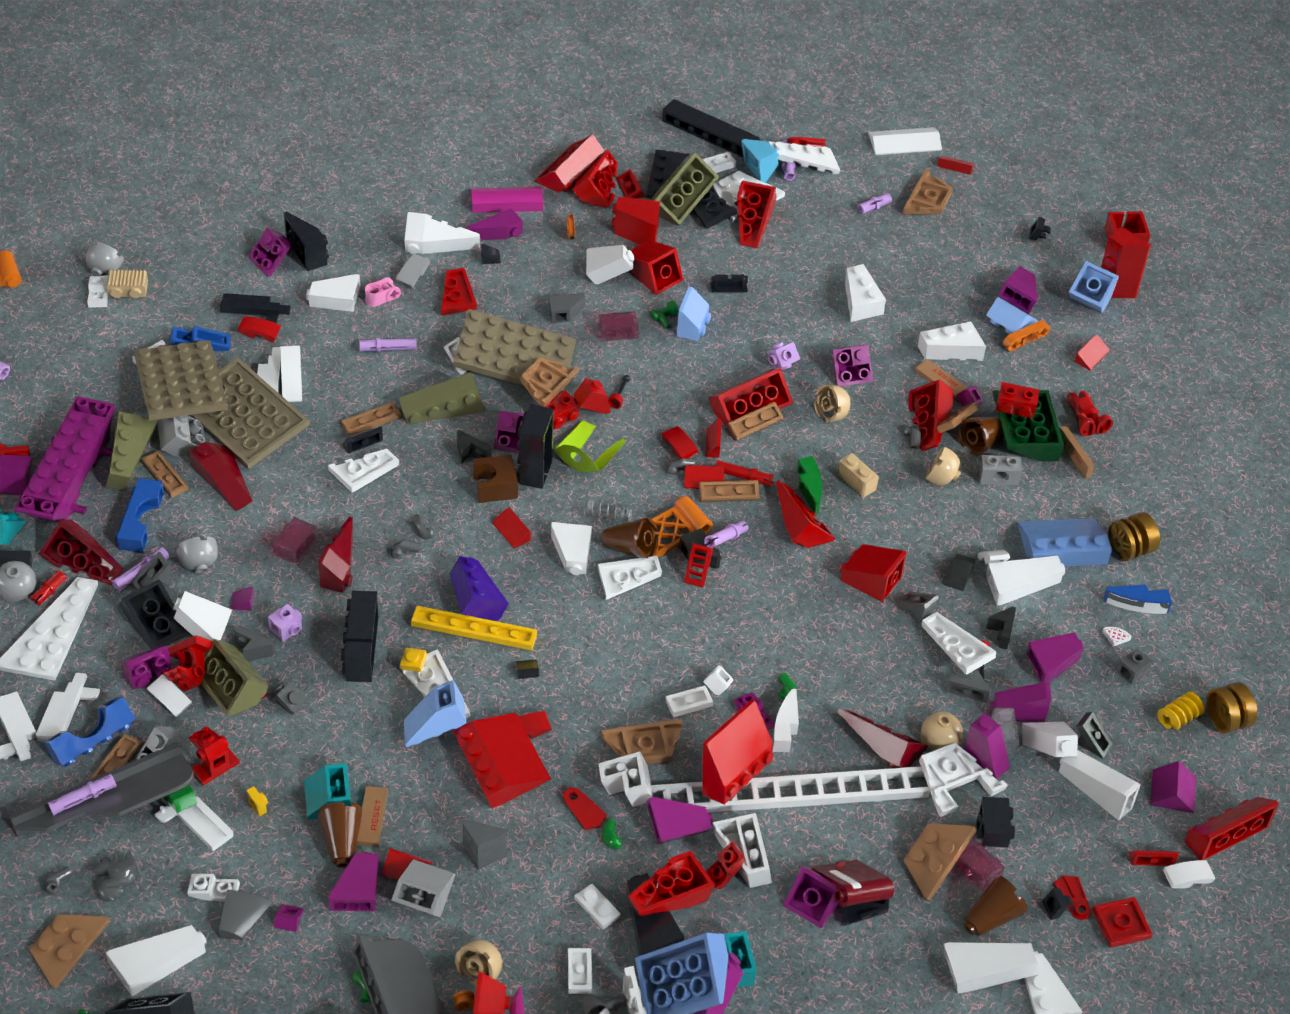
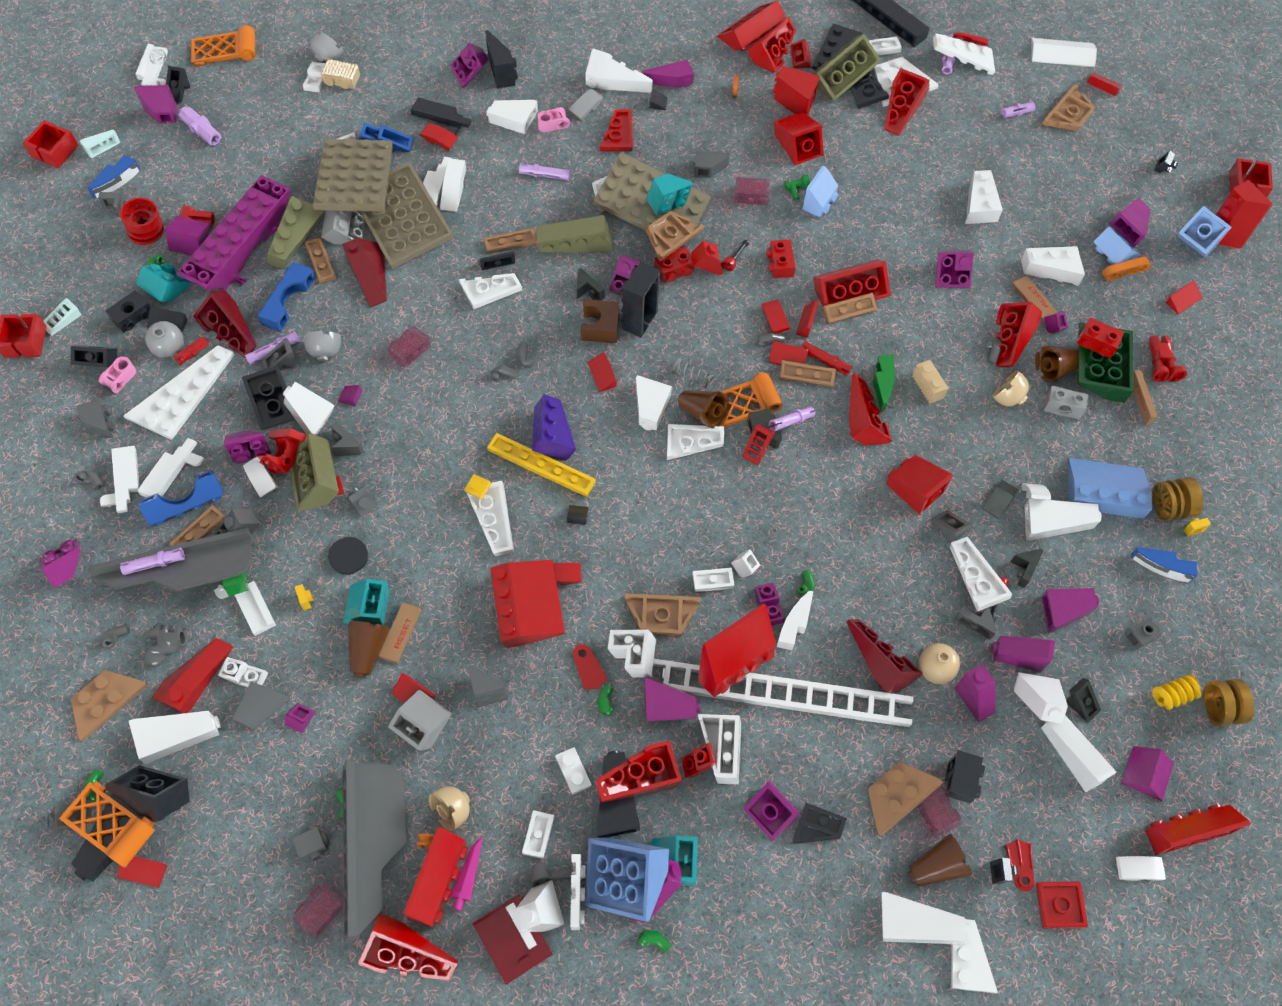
camera: 15 degrees right, 15 degrees up
(157, 905) = (189, 681): none -> red wedge
(211, 748) = (273, 541): red tile -> none
(285, 622) = (378, 426): lavender brick -> none
(291, 754) = (348, 555): none -> black tile
(337, 560) = (437, 376): dark red wedge -> none
(357, 885) = (366, 701): magenta slope -> none
(360, 636) = (437, 454): black piece -> none
(435, 714) = (479, 548): light blue slope -> none
(505, 198) = (688, 49): dark pink slope -> none
(534, 339) = (668, 193): none -> teal slope
(572, 446) = (676, 301): lime piece -> none
(608, 262) = (758, 127): white slope -> none
(669, 386) = (781, 258): none -> red brick
(721, 283) = (858, 166): black hinge -> none
(760, 158) = (924, 48): medium azure slope -> none
(783, 355) = (892, 247): lavender brick -> none
(832, 399) = (927, 301): tan cylinder -> none
(856, 882) = (813, 806): dark red door -> none
(951, 768) = (935, 705): white wing -> none
(957, 417) = (1039, 341): medium nougat tile -> none
(1006, 718) = (1001, 670): clear brick -> none
(1116, 635) = (1133, 596): white tile -> none
(1153, 858) = (1109, 841): red slope -> none
(1160, 559) = (1196, 526): none -> yellow plate

